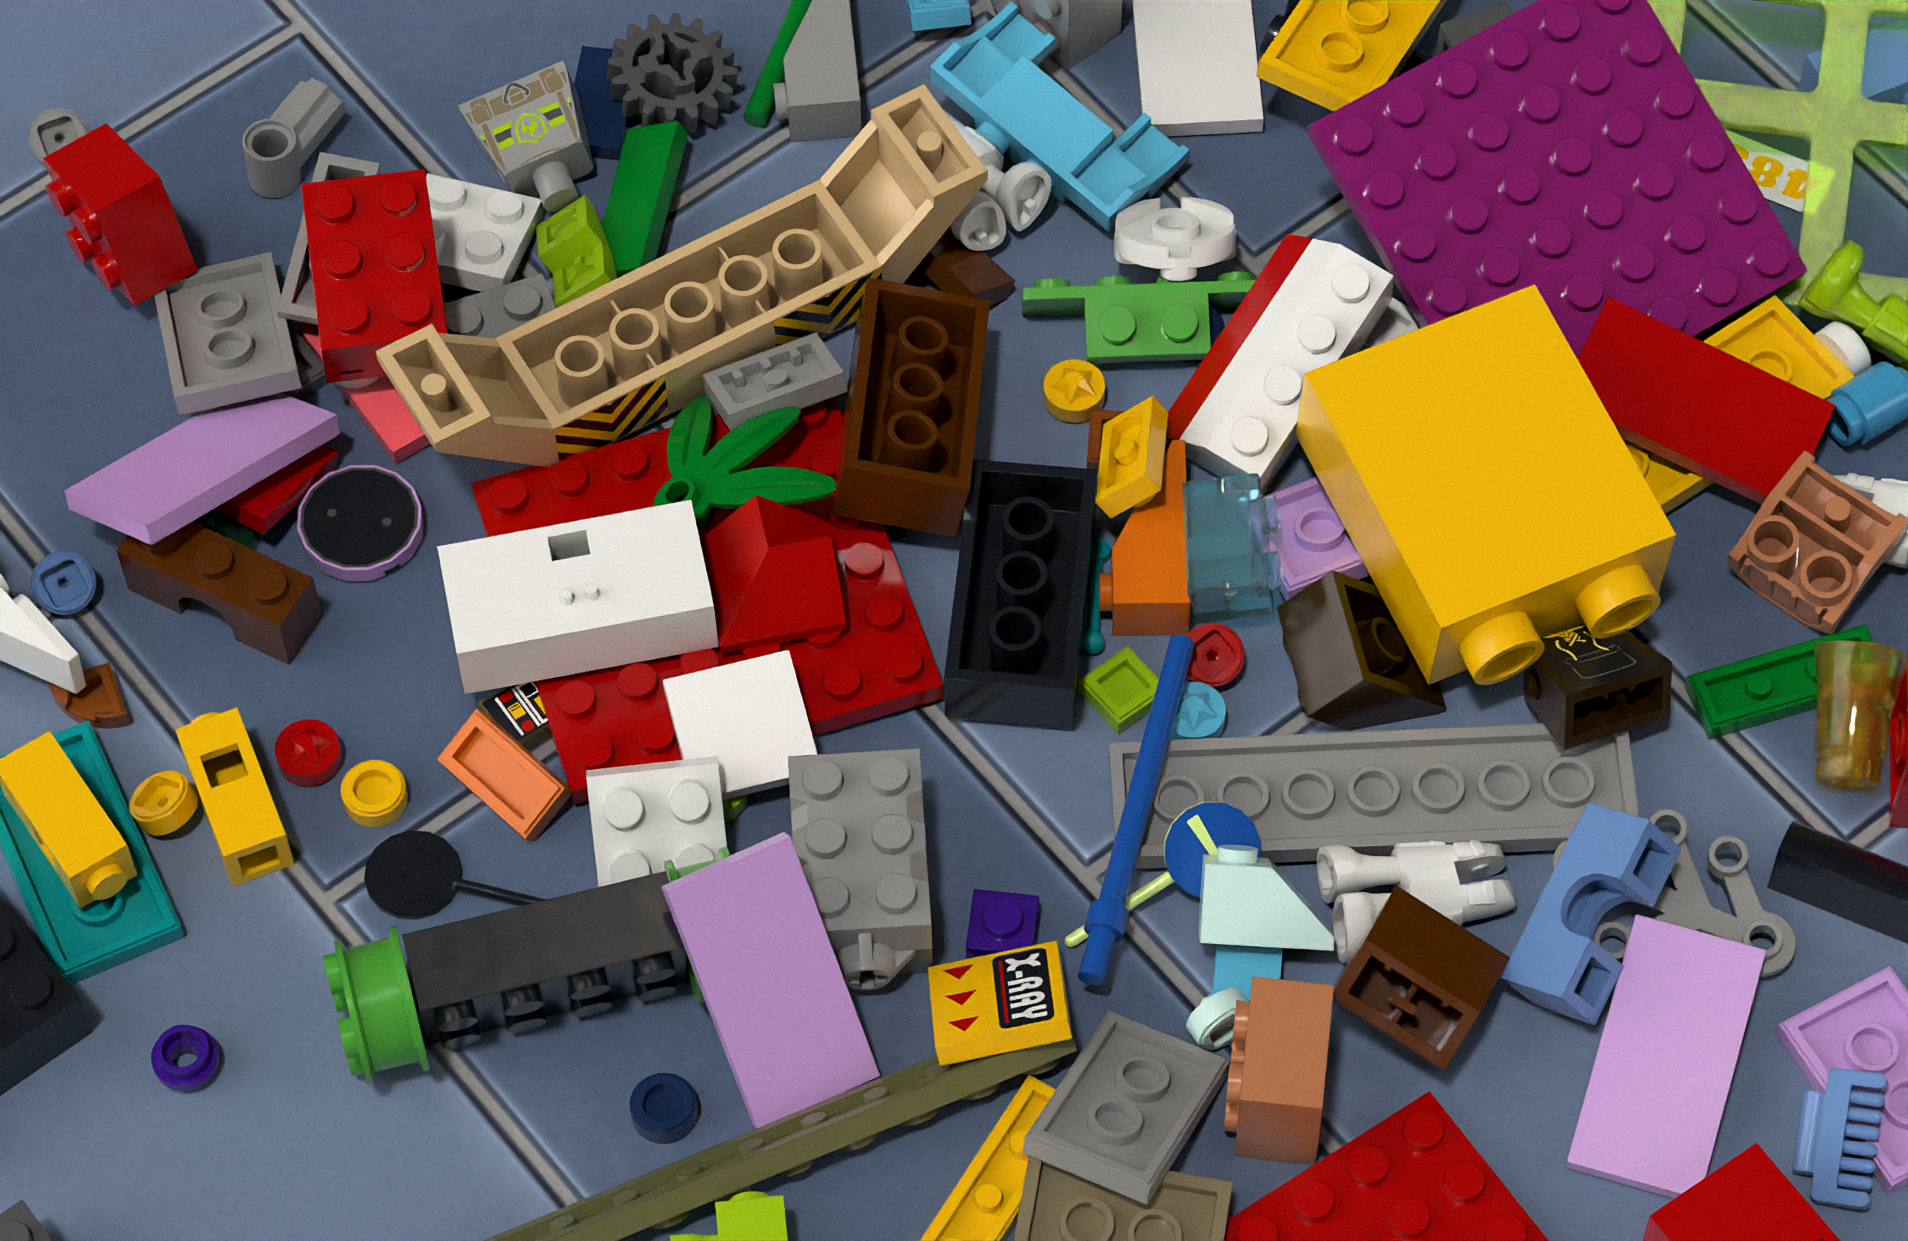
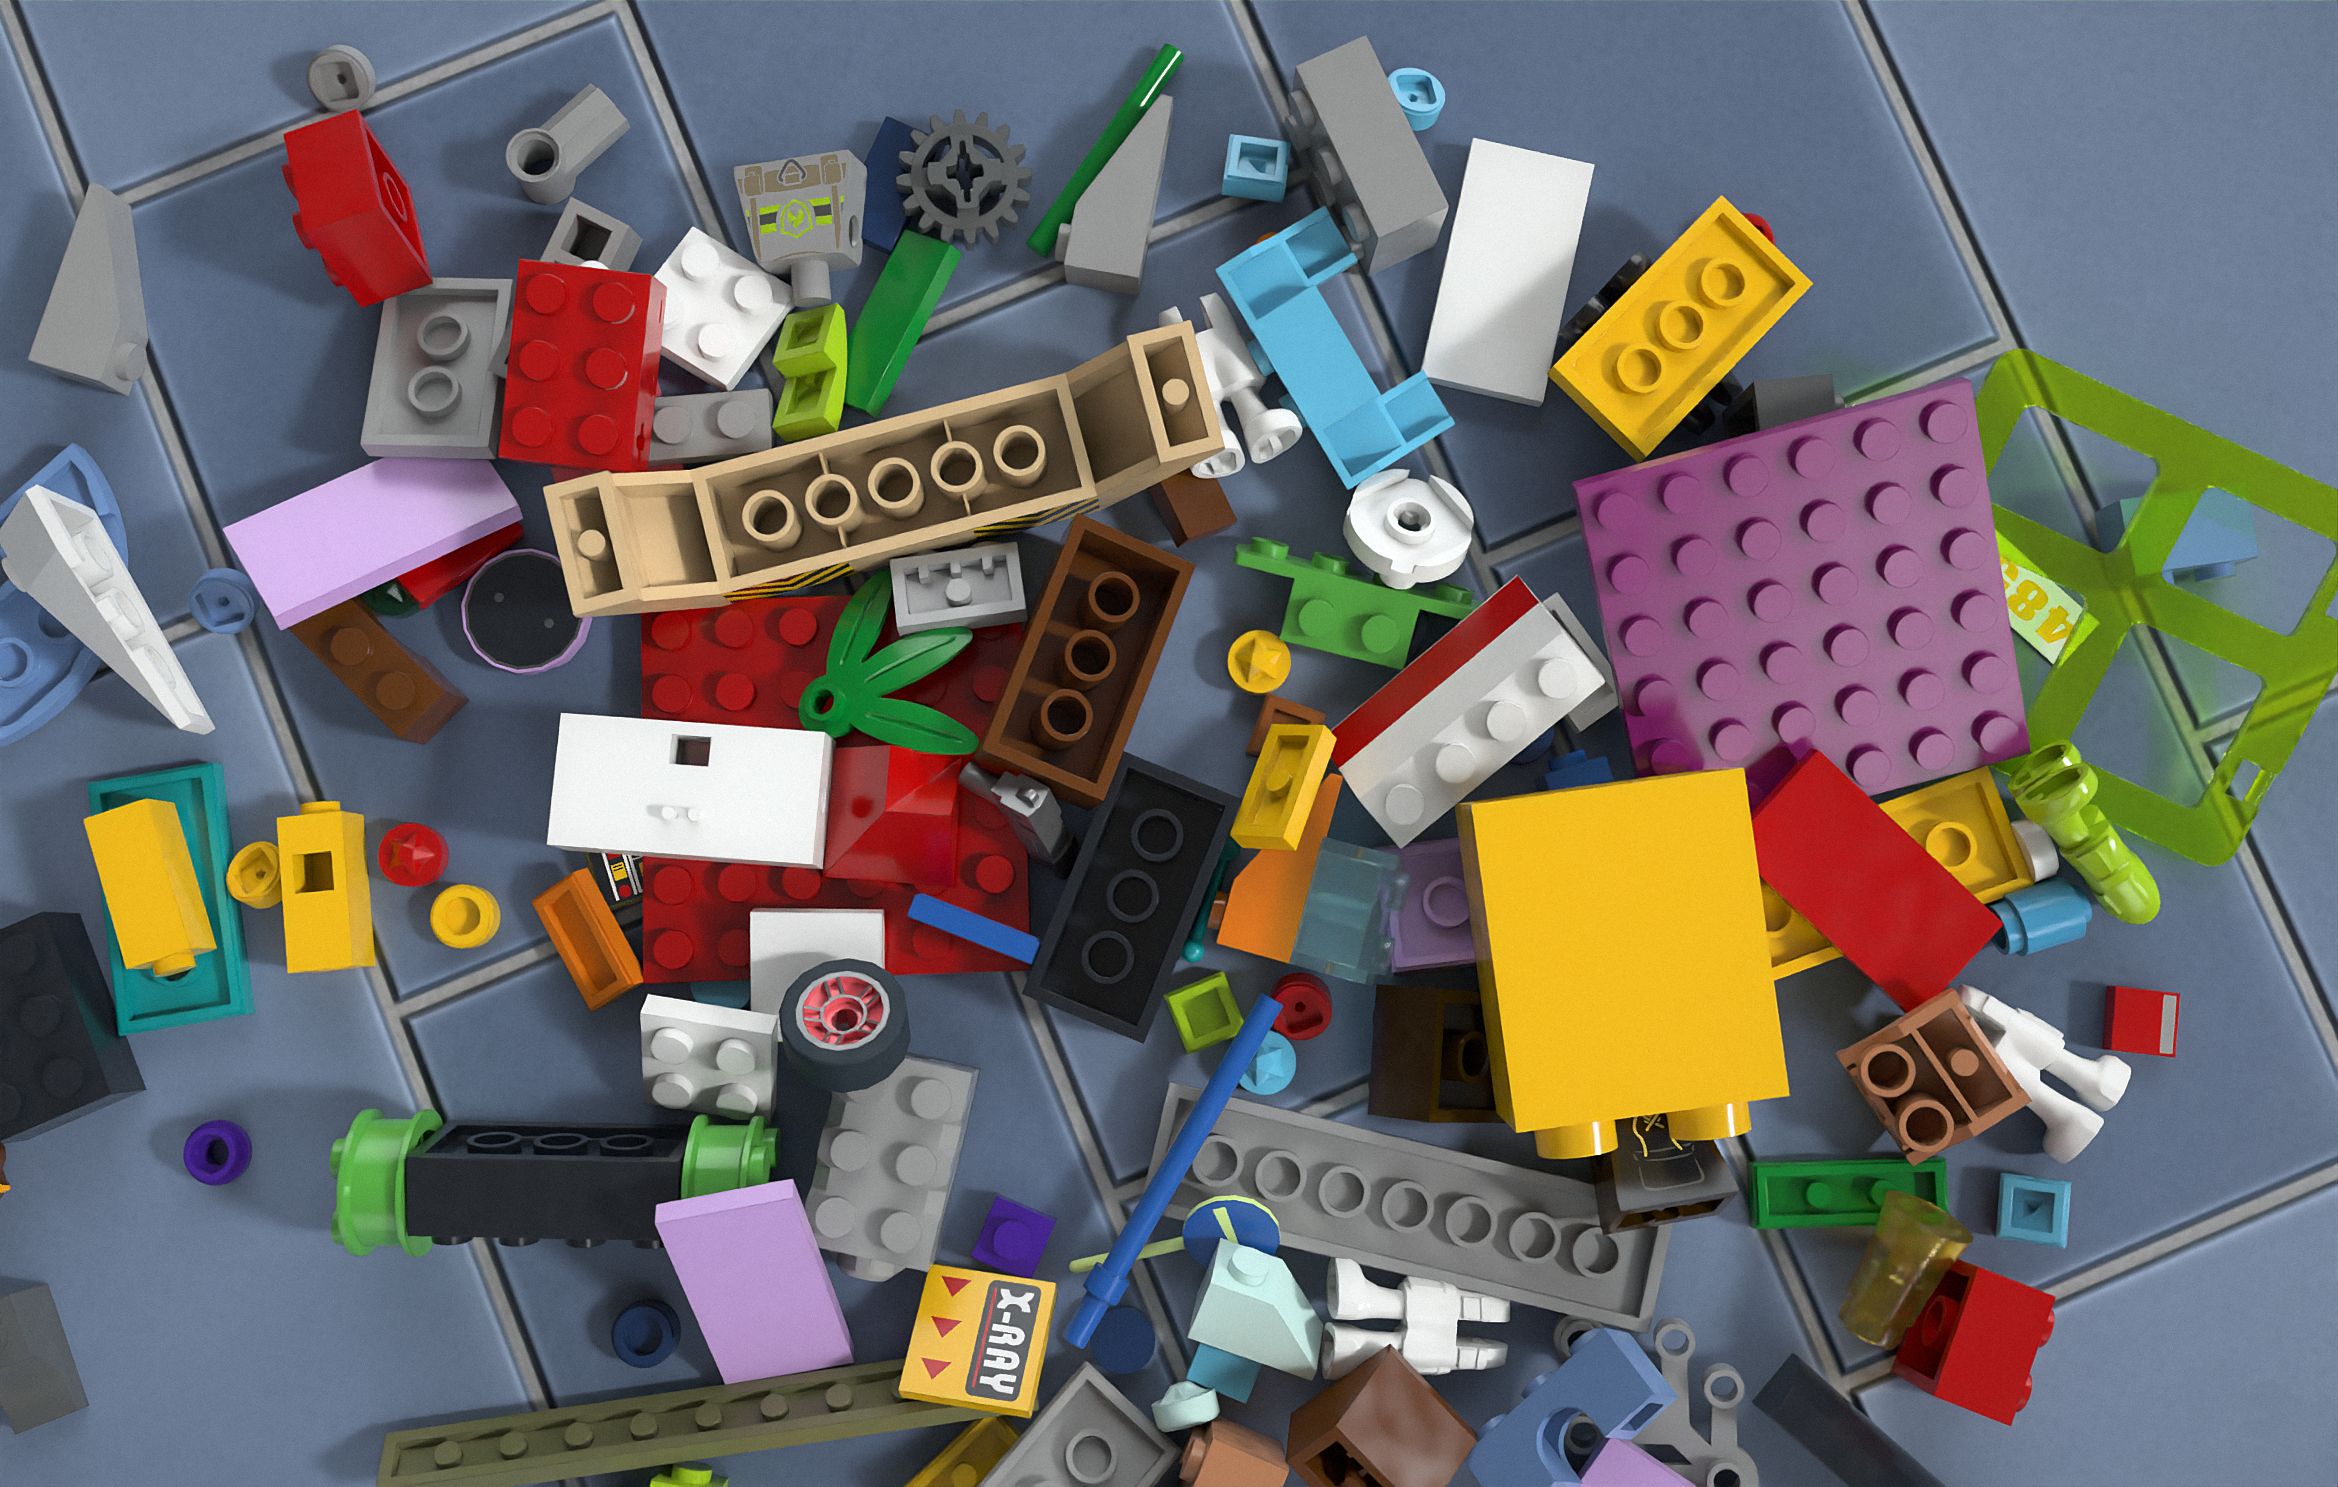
camera: 15 degrees right, 25 degrees up
(97, 702) = (235, 734): dark orange tile -> none
(421, 874) = (487, 1012): black piece -> none
(787, 729) = (839, 994): none -> wheel
(882, 641) = (974, 928): none -> blue tile
(901, 532) = (1030, 813): none -> flat silver piece
(1139, 986) = (1123, 1339): none -> dark blue tile

